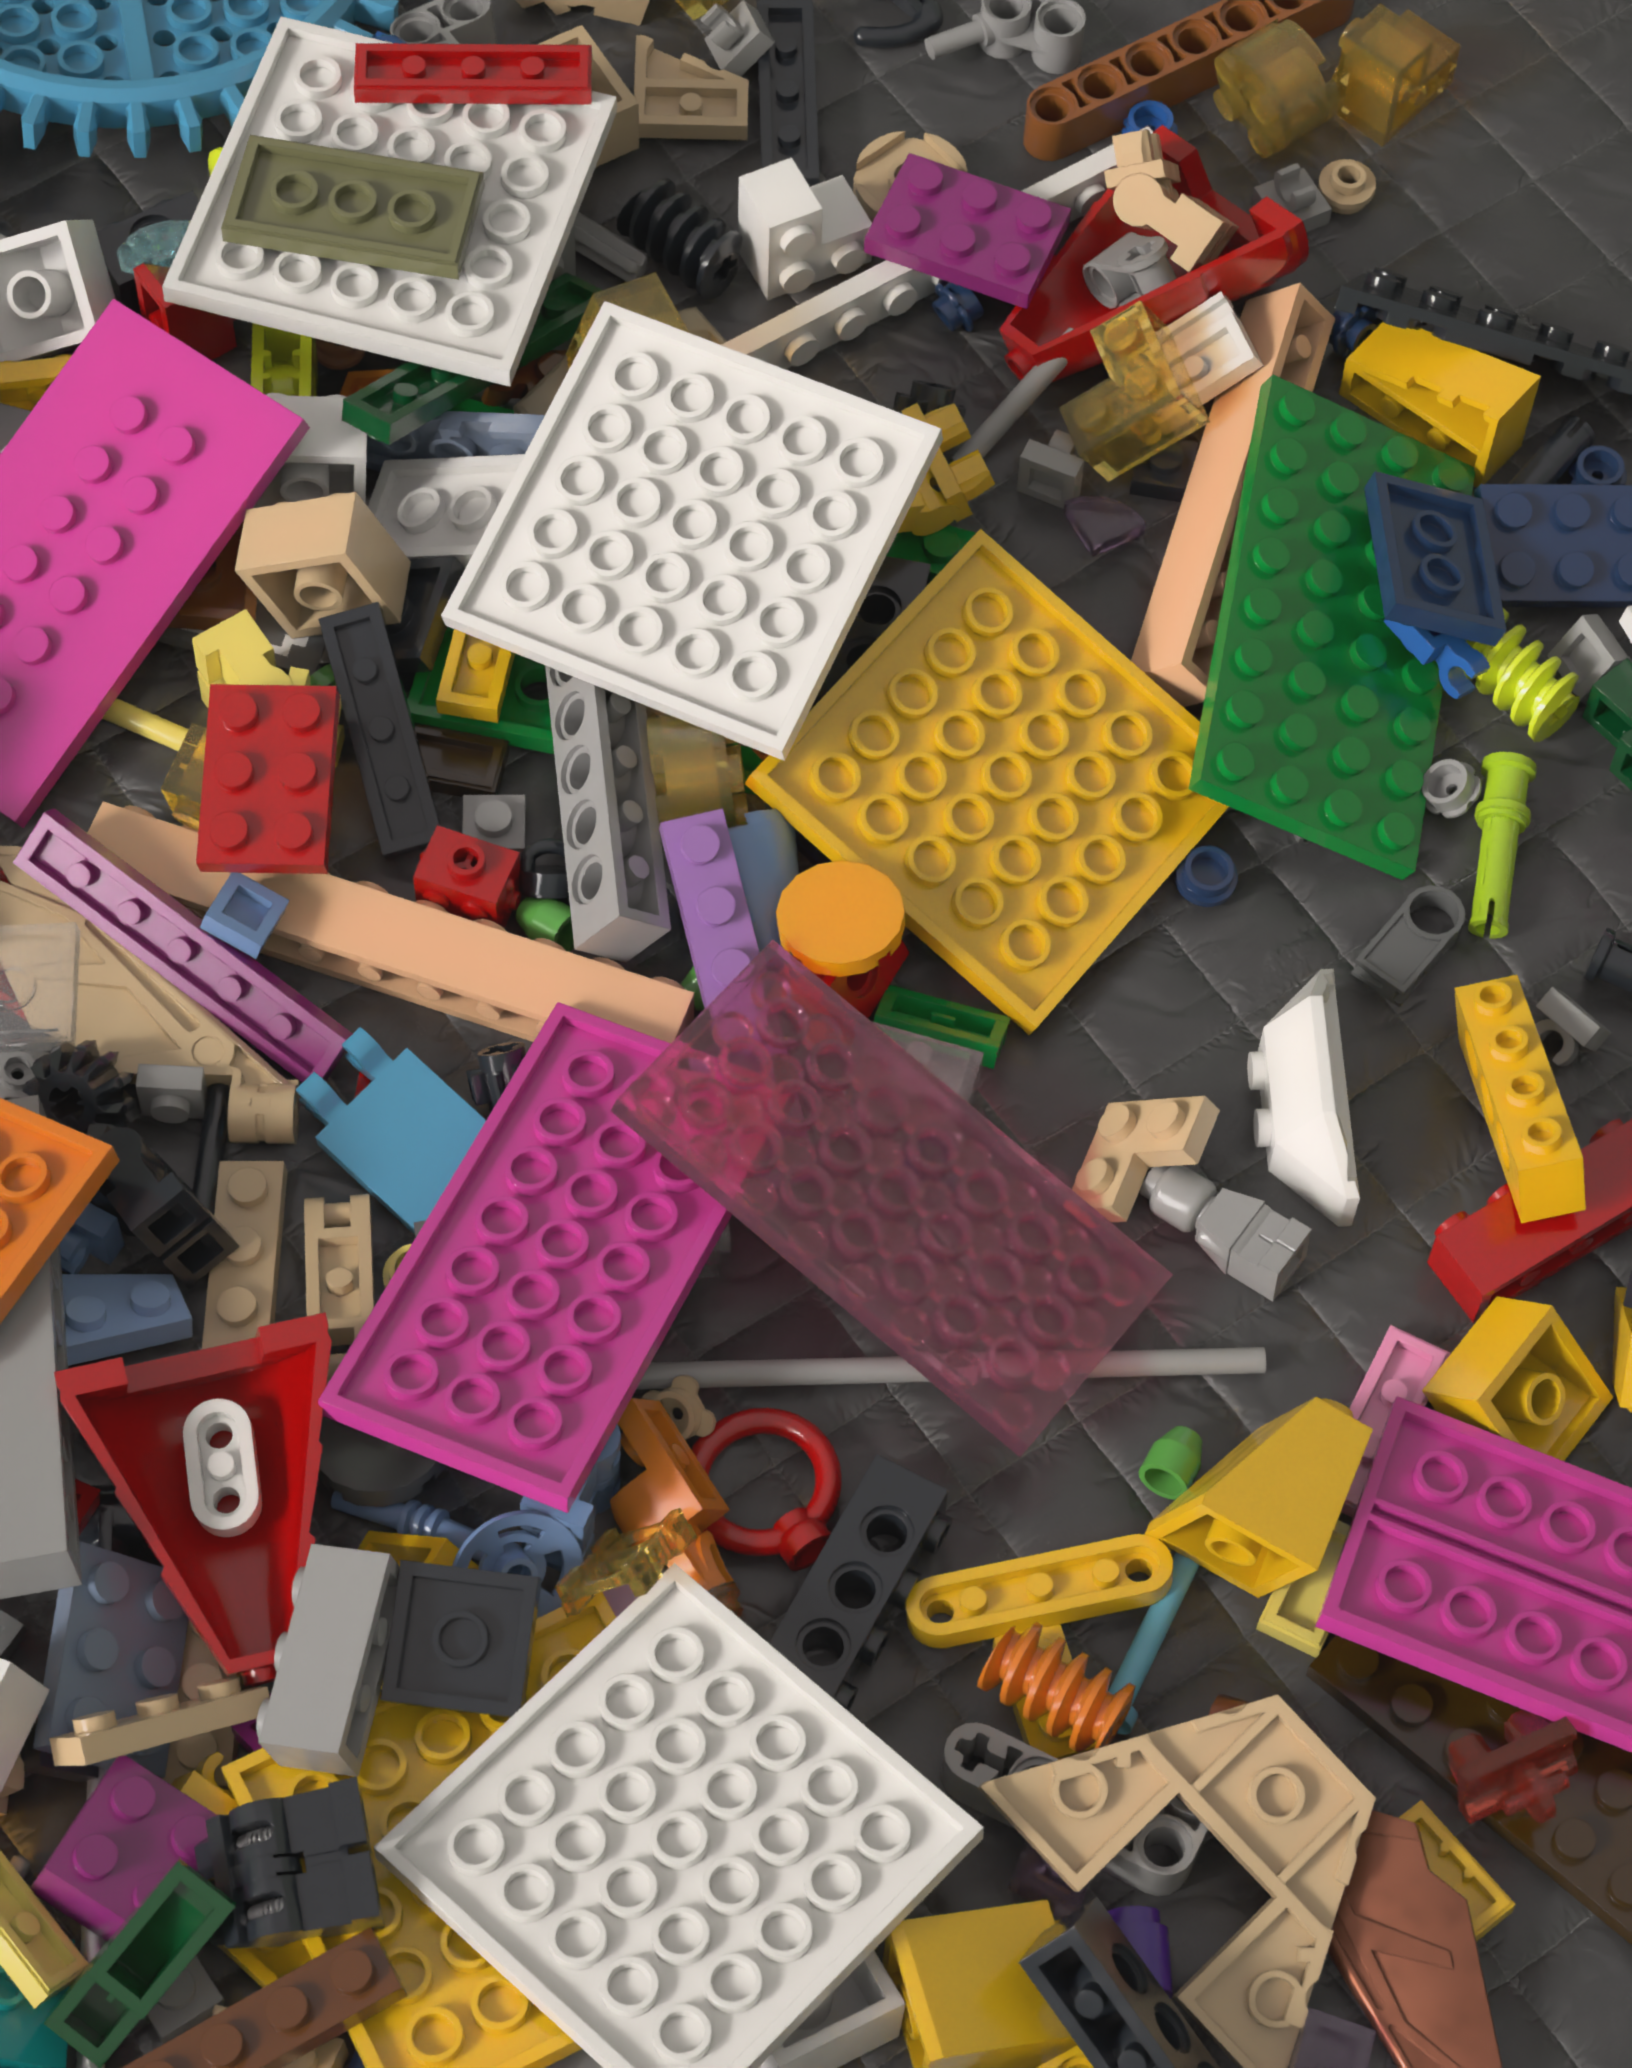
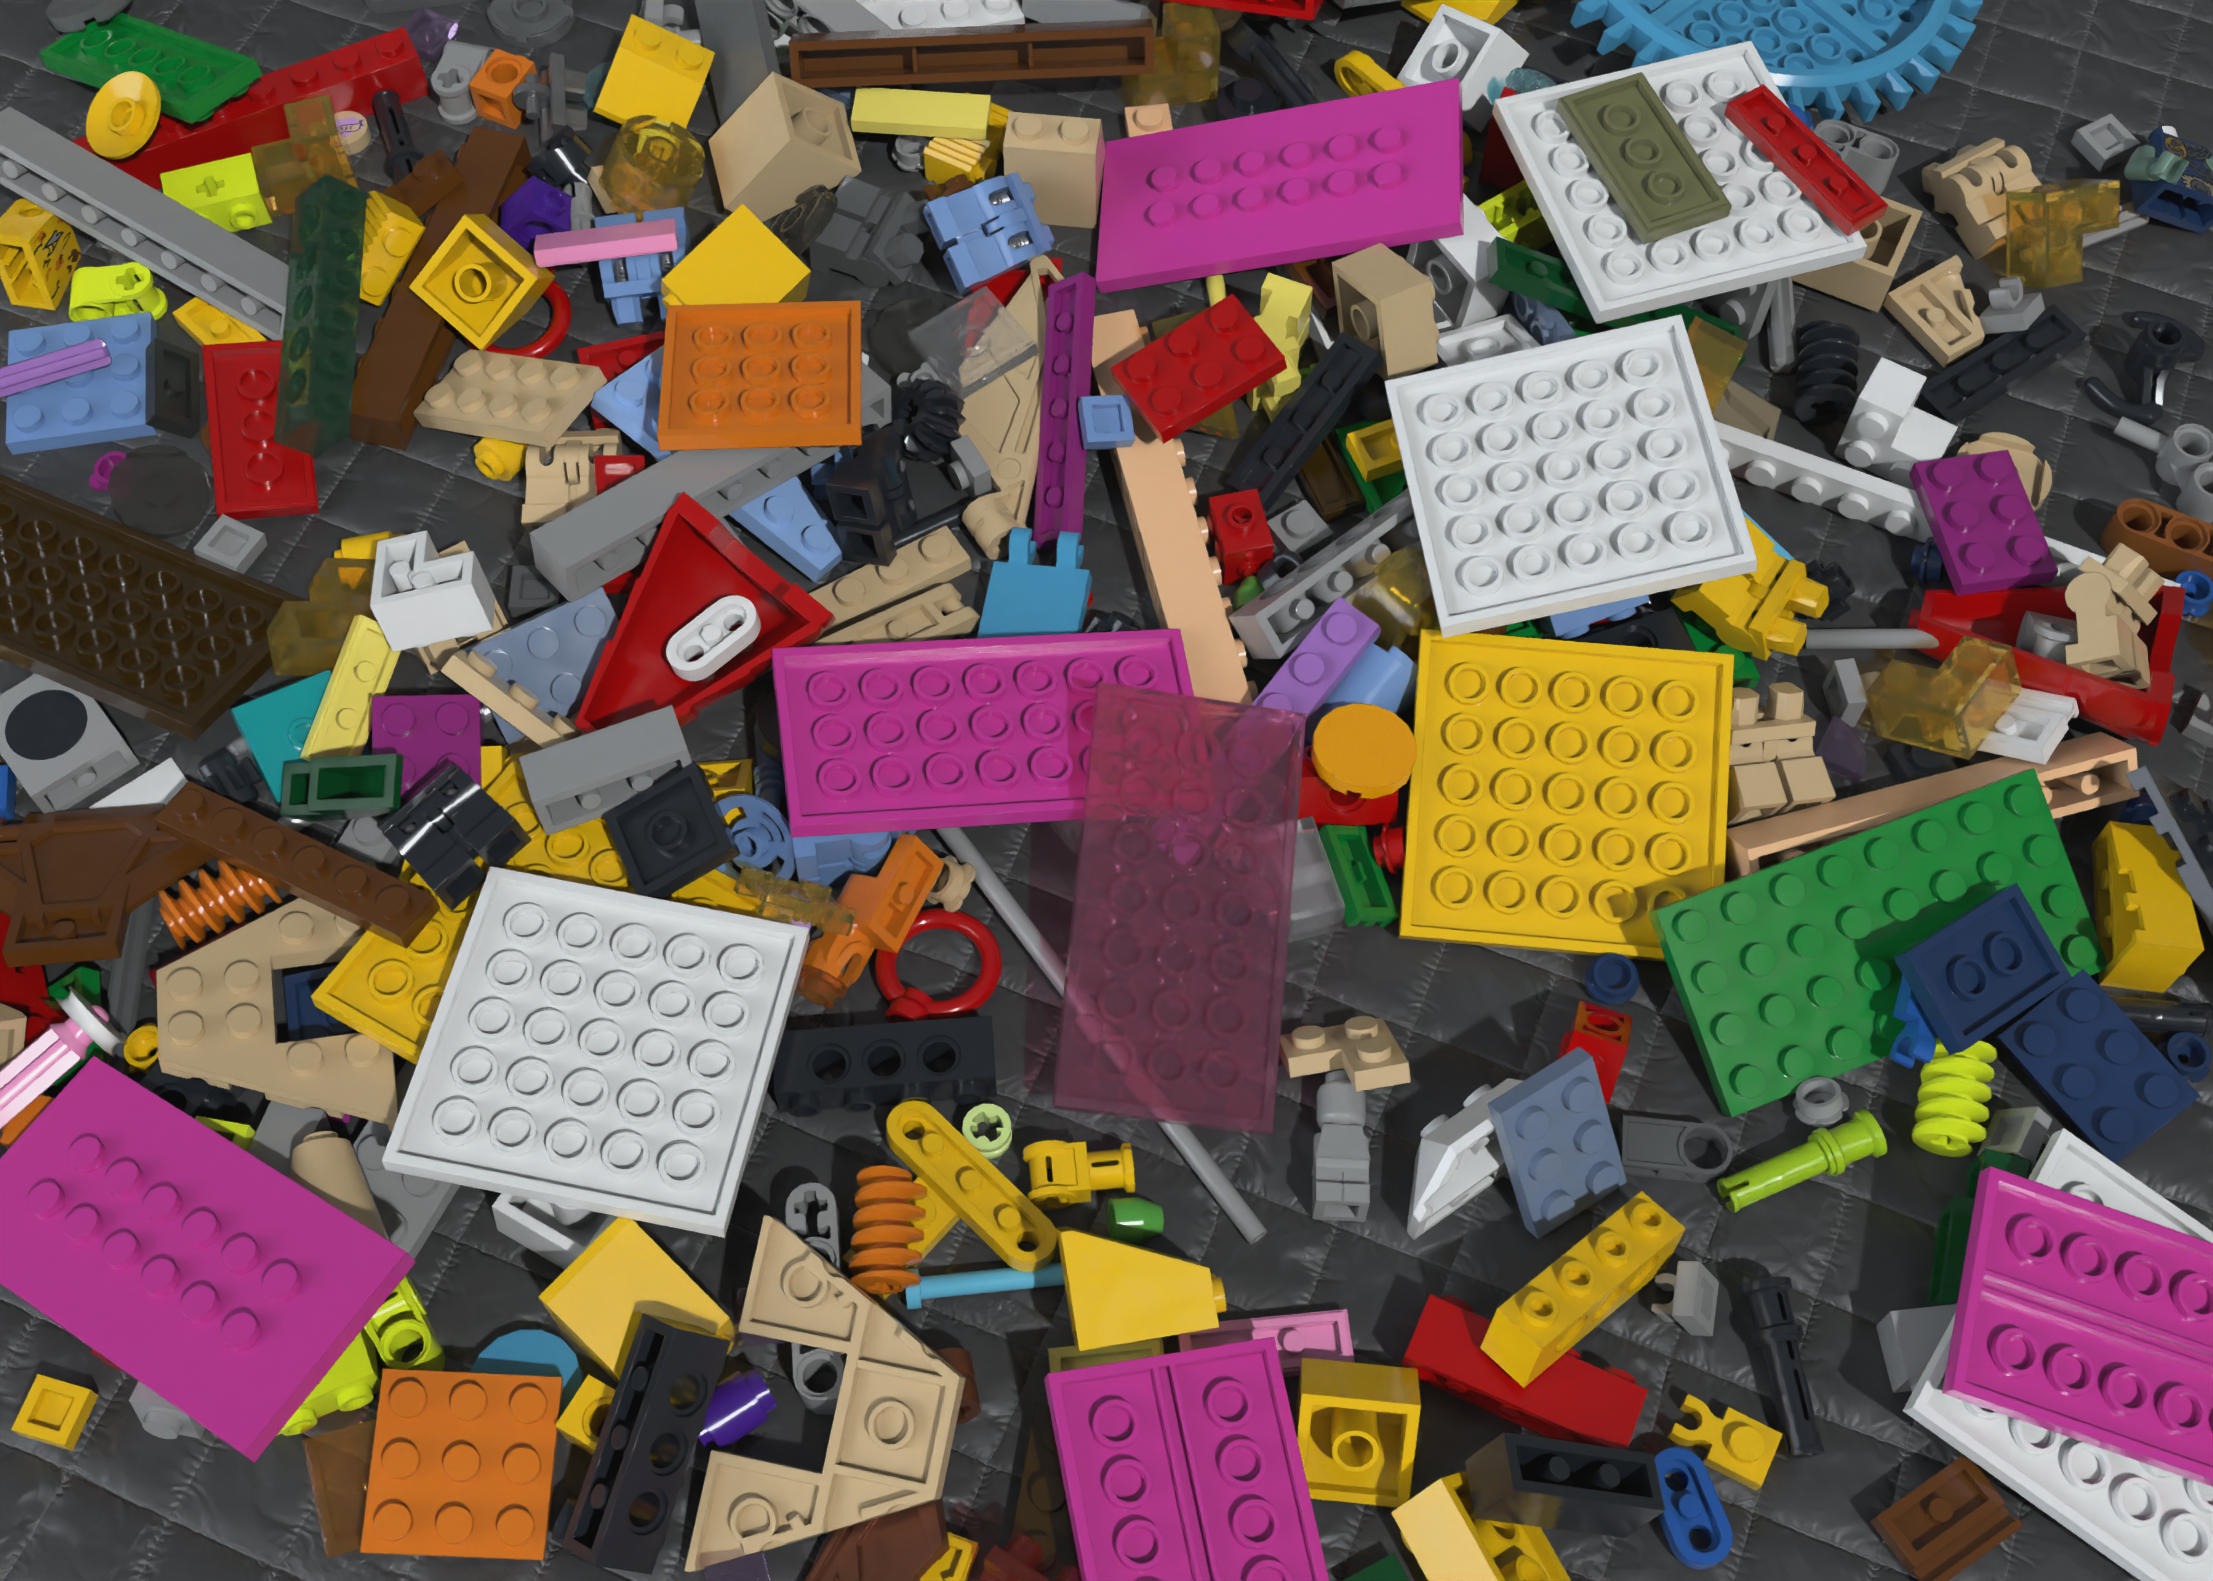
camera: 60 degrees right, 0 degrees up
(935, 973) = (1390, 848): none -> red plate
(984, 1521) = (992, 1116): none -> yellowish green bush
(1089, 1489) = (1075, 1172): none -> yellow connector
(1093, 578) = (1773, 757): none -> tan hips
(1284, 936) = (1603, 1036): none -> red head
(1367, 1024) = (1557, 1142): none -> sand blue plate

